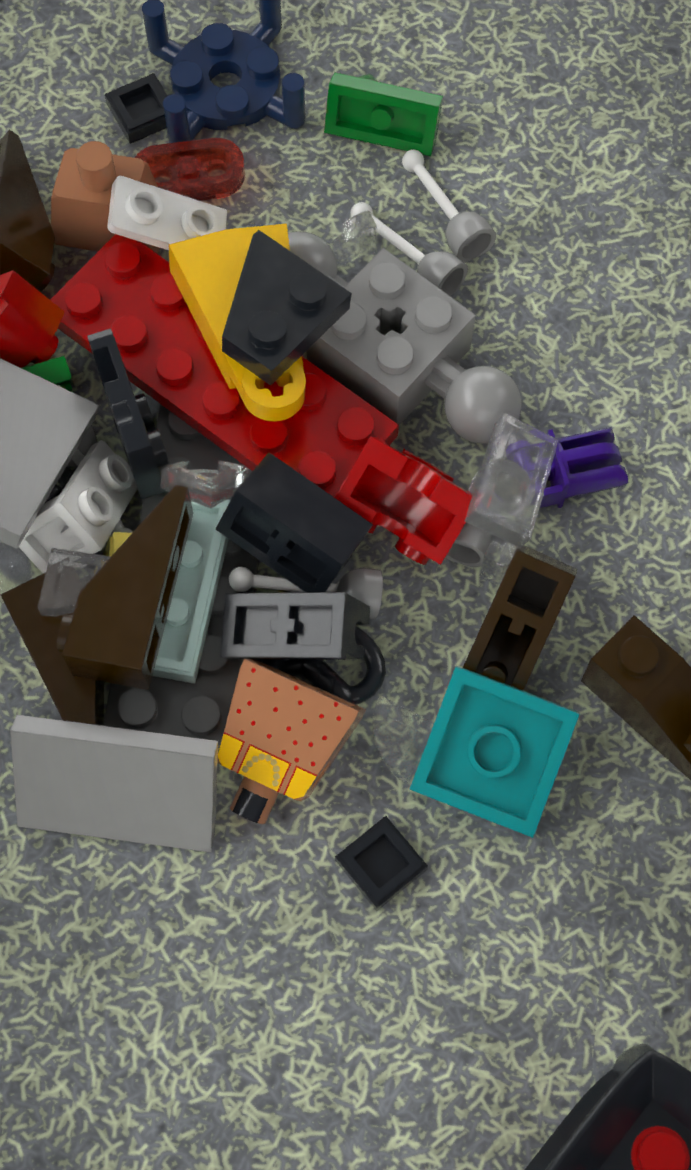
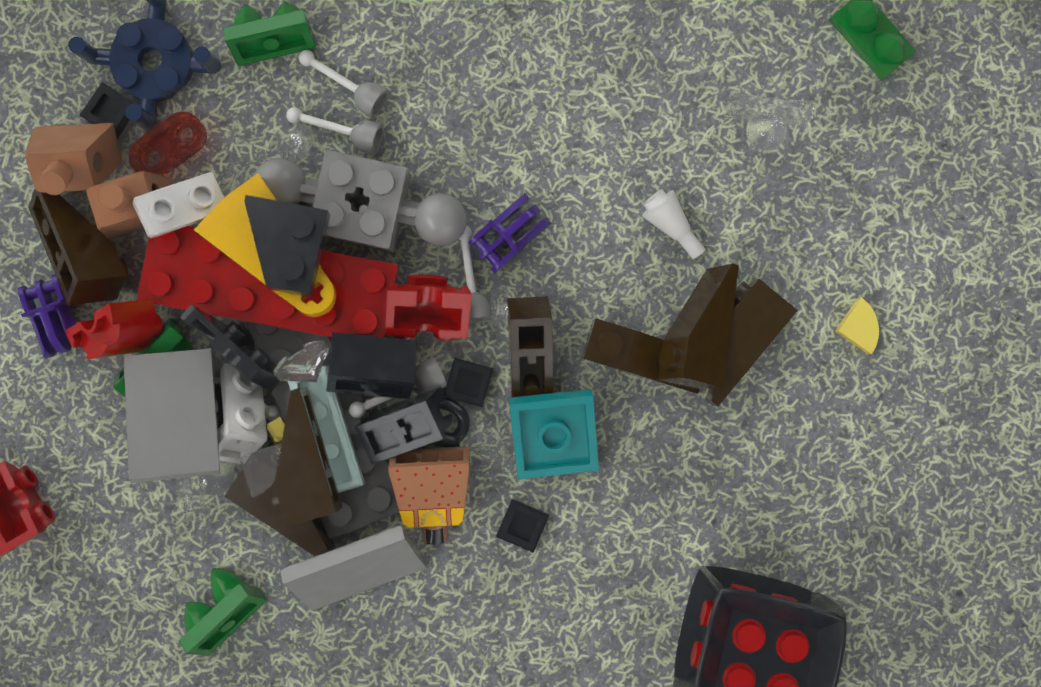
camera: 25 degrees left, 20 degrees up
(64, 117) = (65, 156): none -> nougat torso
(408, 631) = (468, 382): none -> black tile
(511, 480) = (484, 271): clear tile -> none

